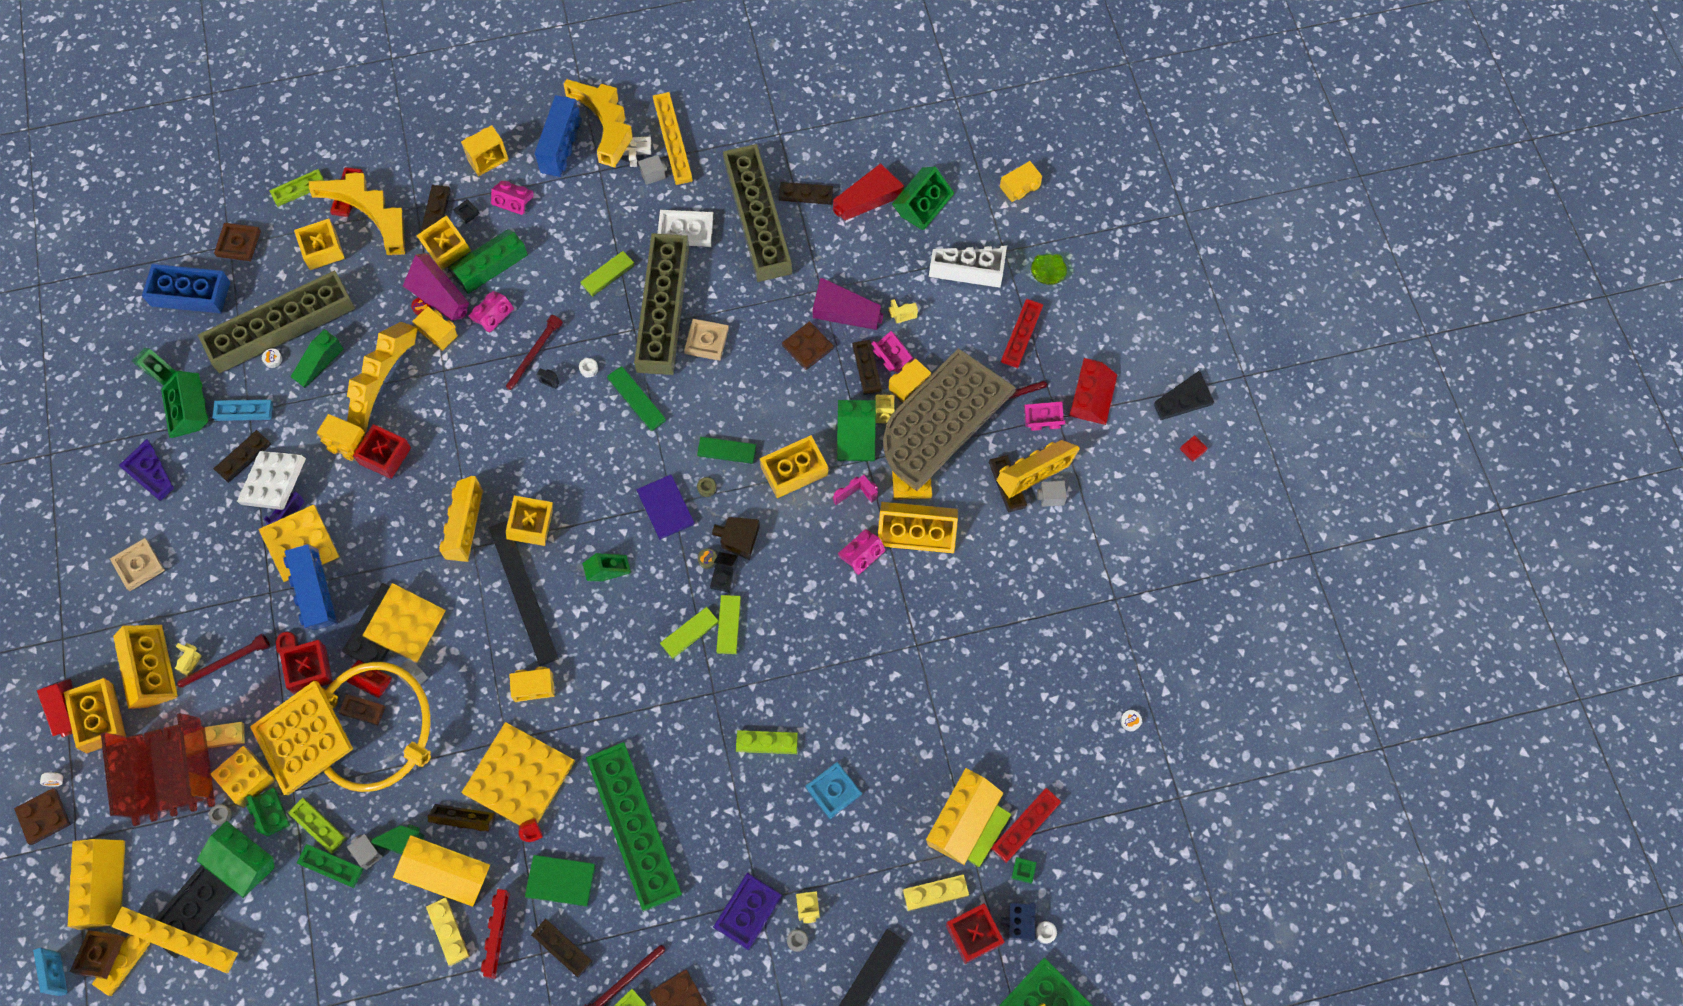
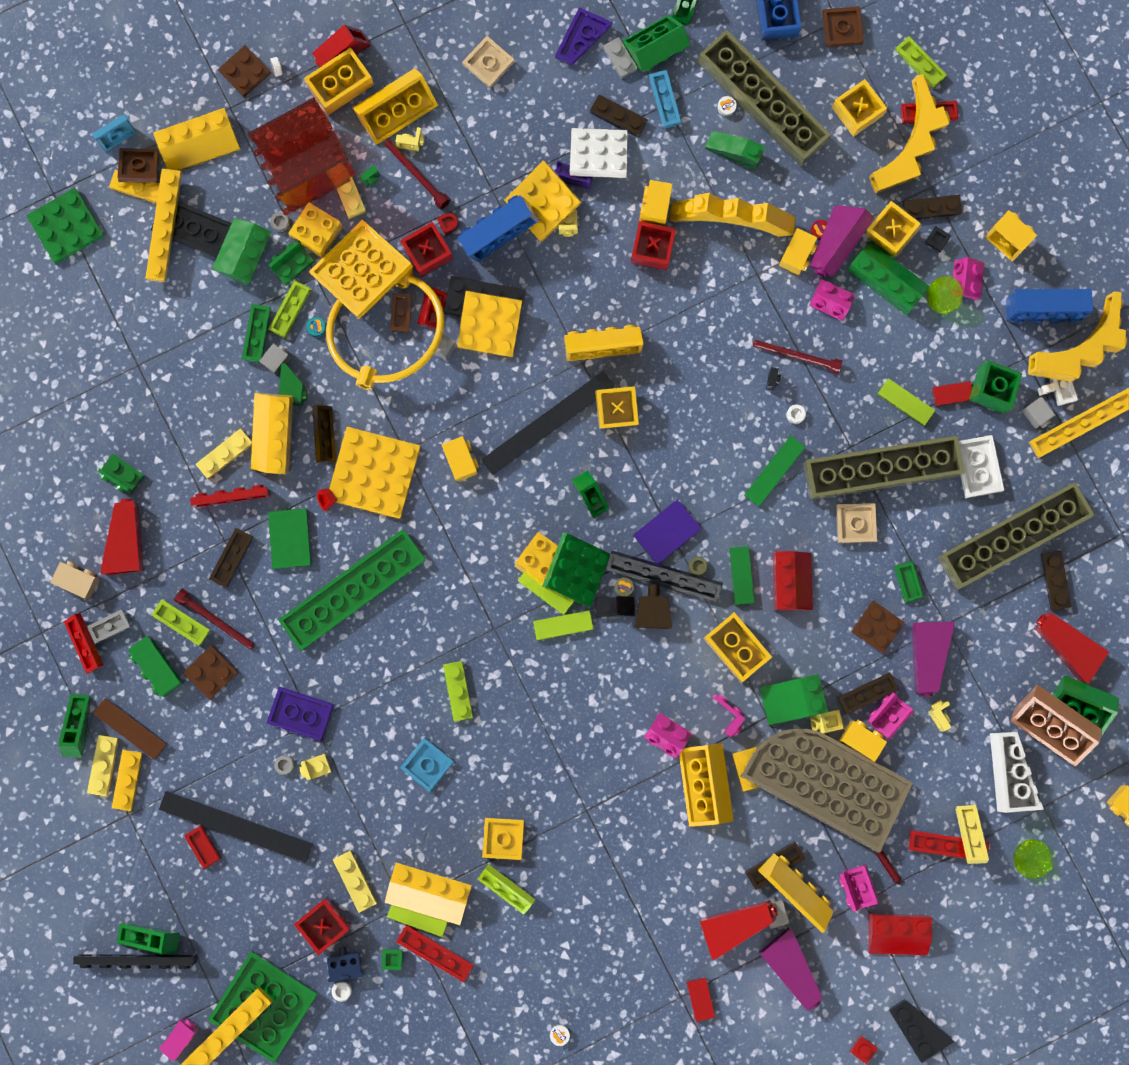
camera: 75 degrees right, 15 degrees up
(185, 442) = (620, 58): none -> light grey plate
(208, 708) = (370, 176): none -> green plate
(334, 526) = (569, 225): none -> light yellow bracket
(345, 801) = (316, 327): none -> teal tile
(519, 216) = (945, 295): none -> clear neon green dish
(612, 234) = (952, 393): none -> red tile
(617, 195) = (995, 386): none -> green brick
(658, 626) = (537, 558): none -> yellow brick
(677, 594) = (576, 569): none -> green plate
(706, 518) = (664, 576): none -> black plate
(744, 407) = (792, 581): none -> red slope
(773, 310) = (908, 582): none -> green tile
(925, 730) = (503, 838): none -> yellow plate
(934, 218) = (1056, 725): none -> nougat brick
(976, 738) = (506, 889): none -> lime plate
(1016, 309) = (972, 834): none -> light yellow plate
(1058, 529) = (735, 926): none -> red slope
(1106, 491) = (789, 964): none -> magenta slope
(1120, 580) = (700, 999): none -> red tile

